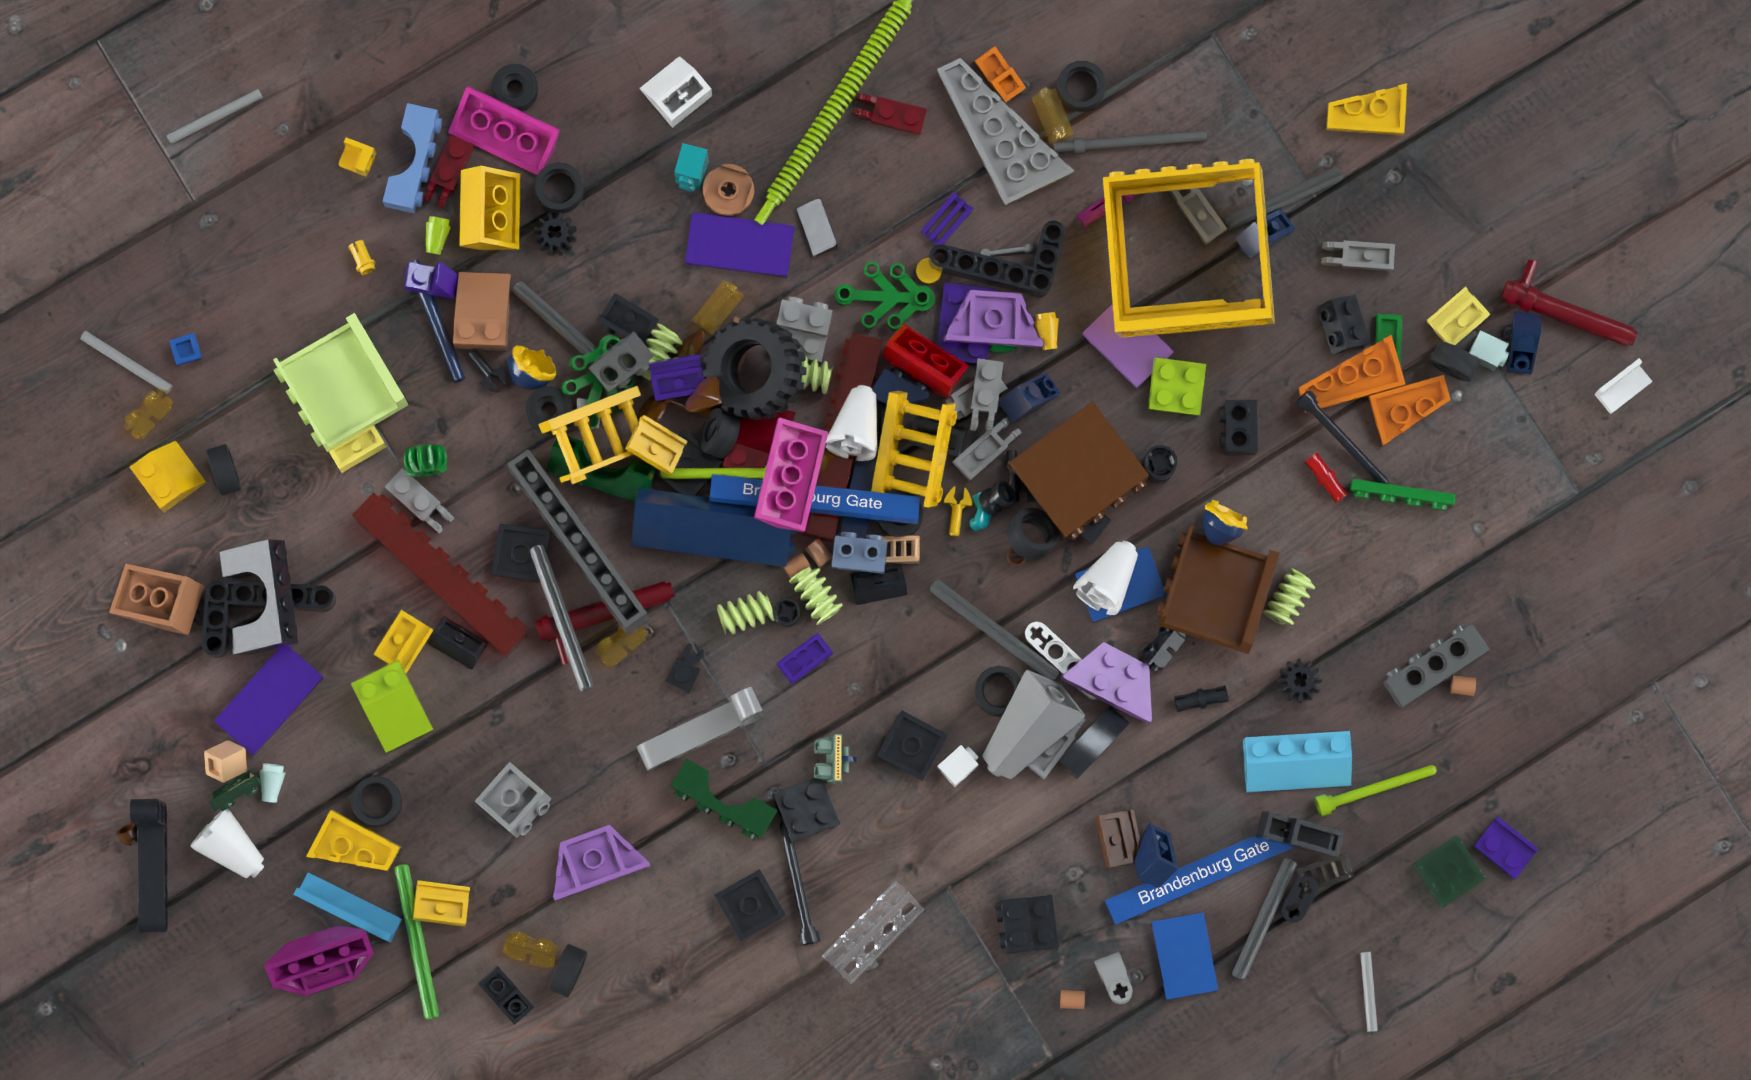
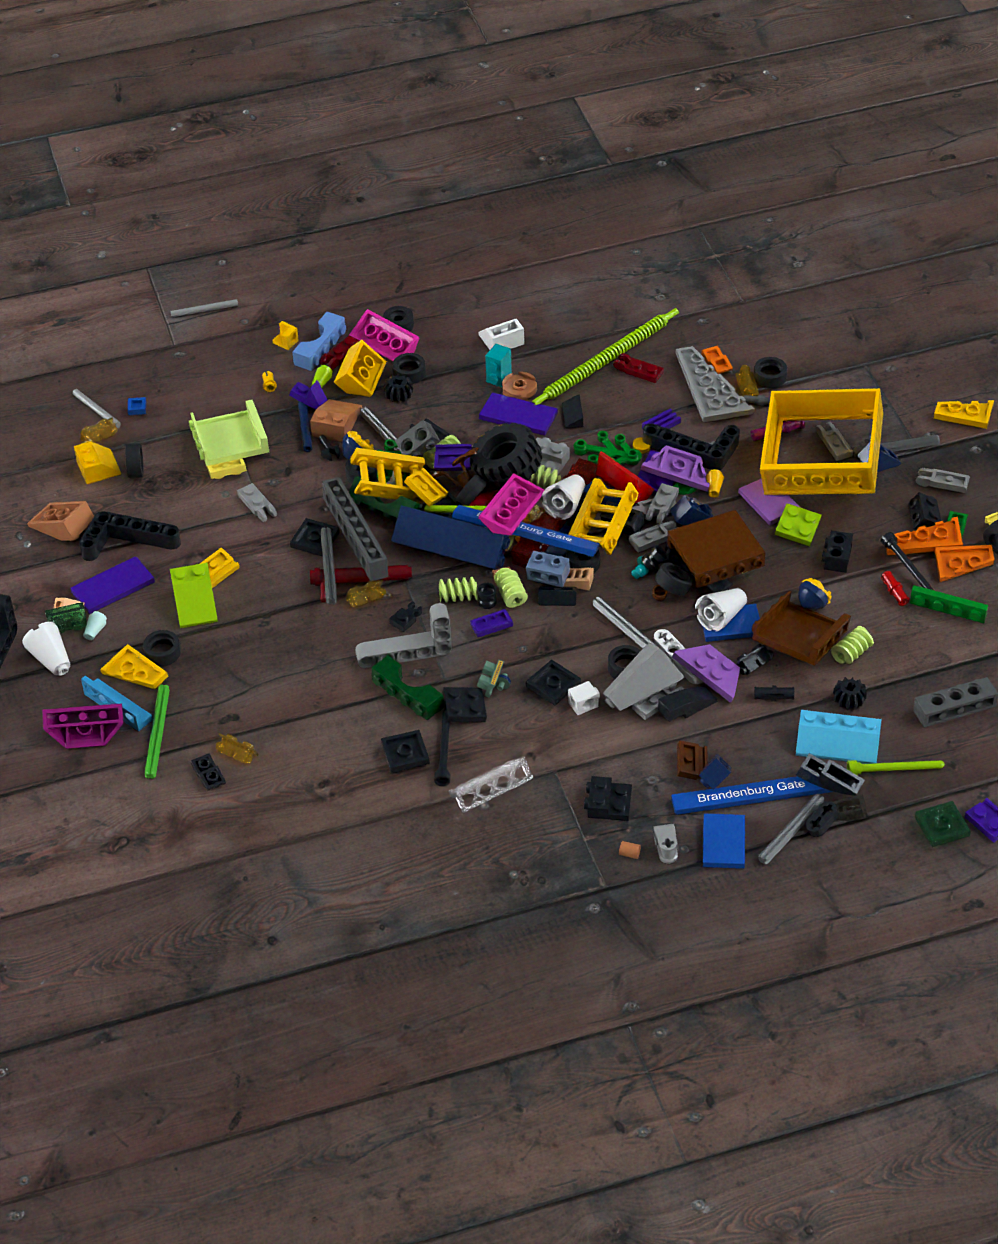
camera: 20 degrees right, 35 degrees down
(277, 623) = (132, 537): arch -> none
(425, 460) = (269, 477): green gear -> none
(440, 575) = (256, 539): clear red brick -> none
(441, 903) = (183, 710): yellow plate -> none
(457, 642) = (252, 578): black slope -> none
(514, 800) = (258, 662): light grey plate -> none
(568, 970) = (258, 759): black tyre -> none
(594, 861) = (301, 706): medium lavender wing -> none
(819, 553) = (520, 568): nougat hinge -> none
(957, 509) = (621, 559): yellow bar -> none
(1160, 463) = (775, 559): black wheel -> none
(1369, 995) = (864, 885): light grey bar -> none
(1462, 685) = (974, 718): nougat hinge -> none

